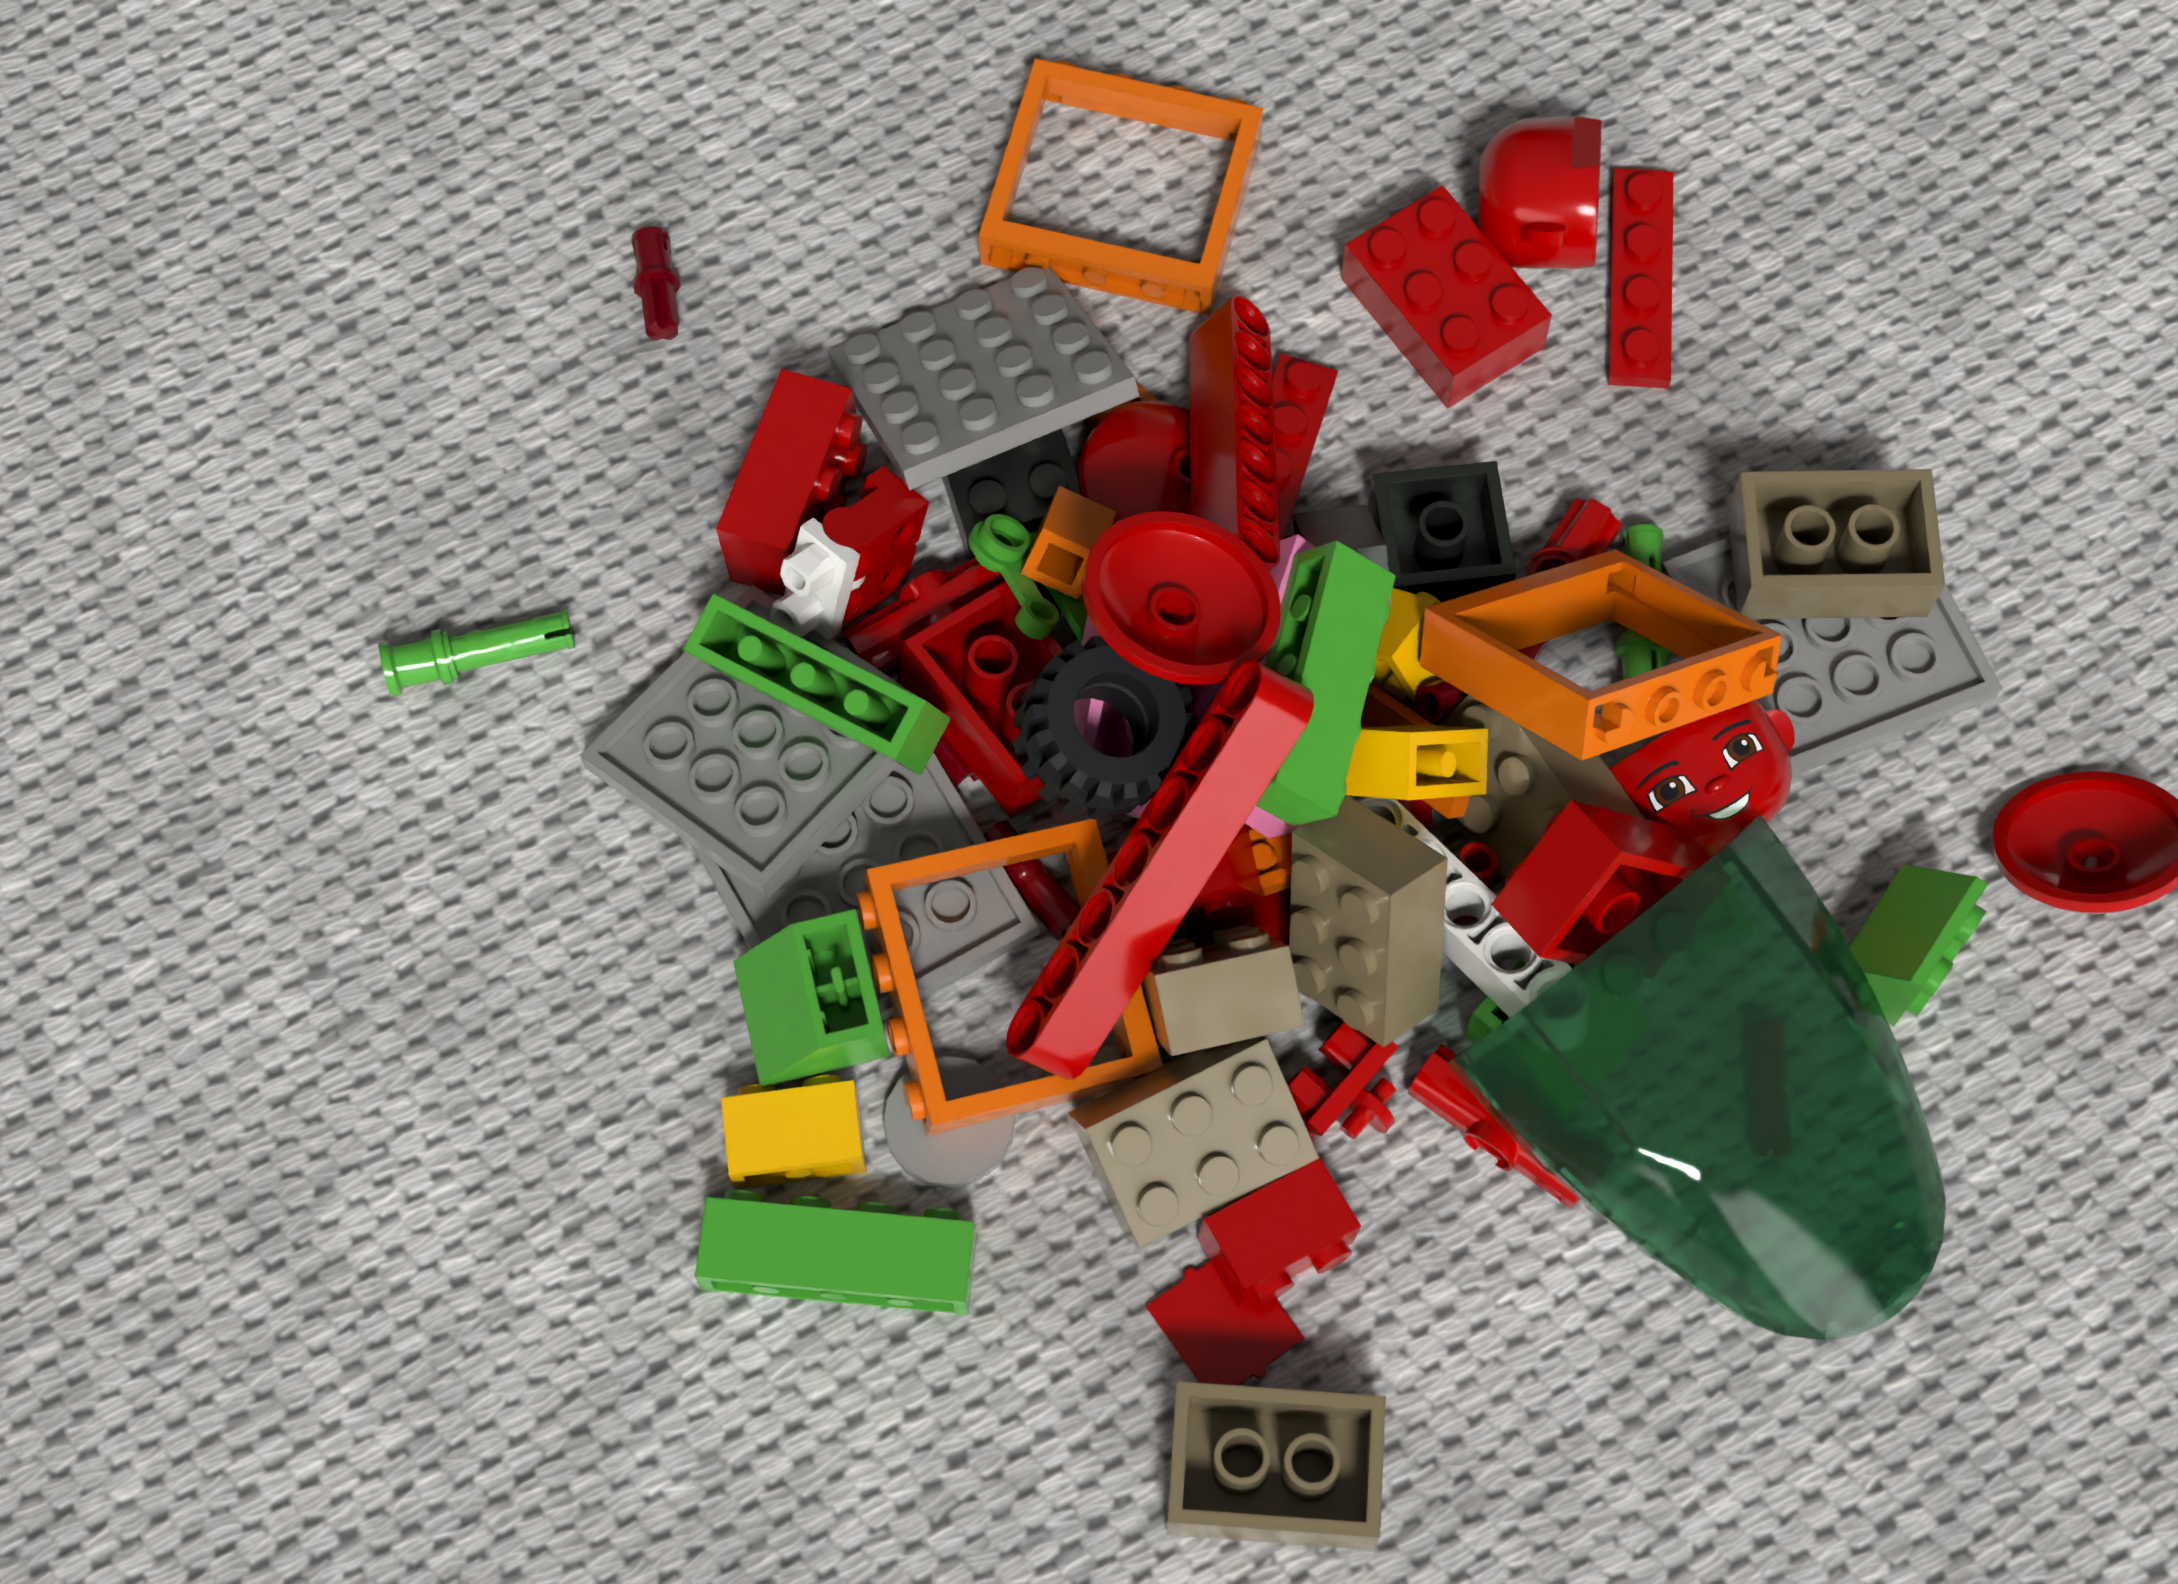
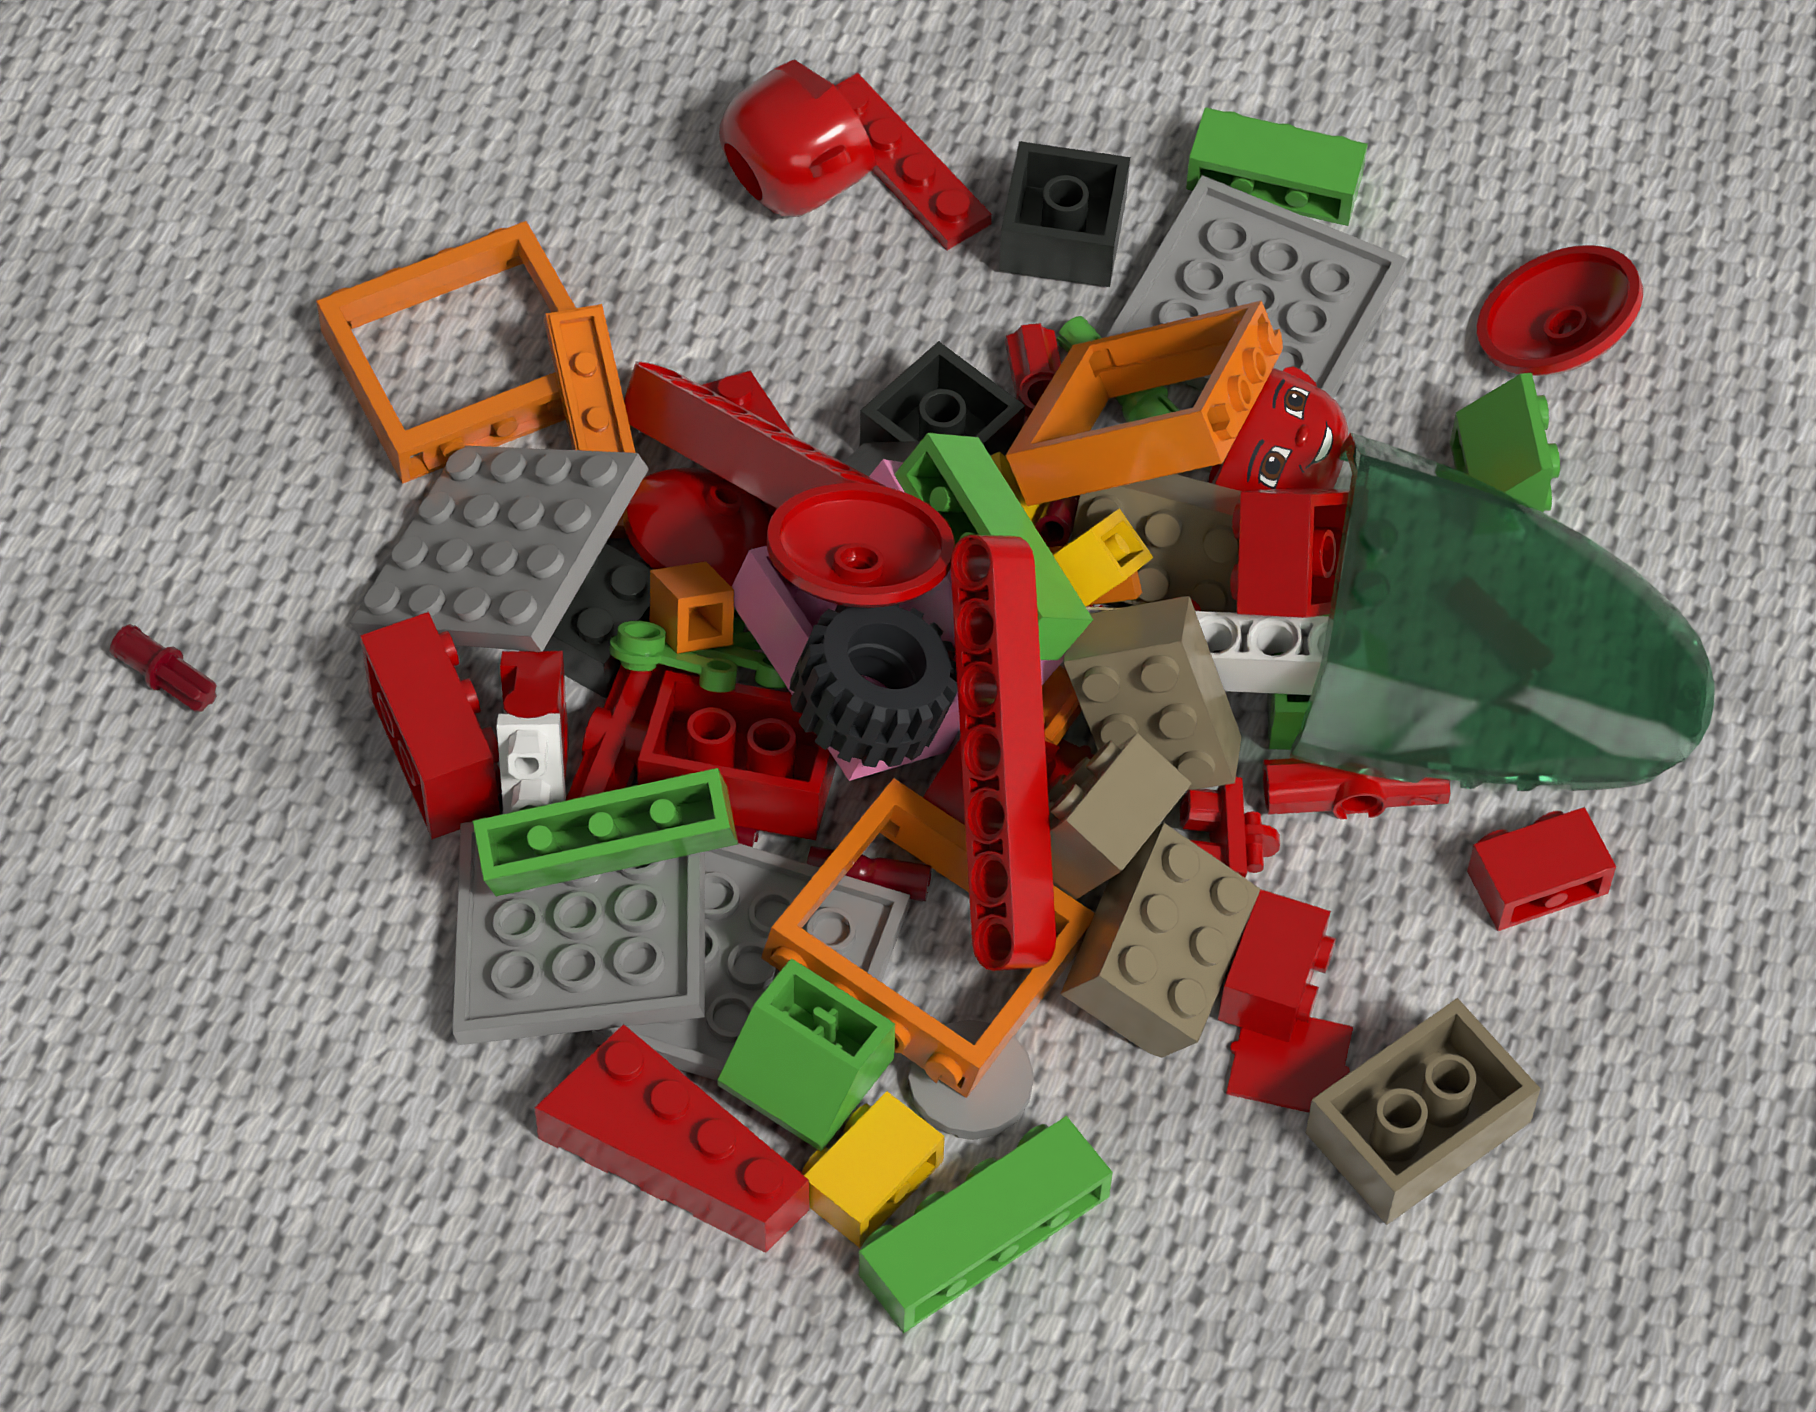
camera: 45 degrees left, 10 degrees down
(446, 655) = (267, 1048): bright green pin -> none
(660, 967) = (665, 1134): none -> red wedge
(1176, 294) = (588, 380): none -> orange tile
(1445, 296) = (781, 264): red brick -> none
(1593, 1333) = (1540, 867): none -> red brick
(1725, 419) = (1064, 214): none -> pearl dark grey brick
(1835, 544) = (1220, 232): dark tan brick -> none
(1982, 532) = (1279, 164): none -> bright green brick

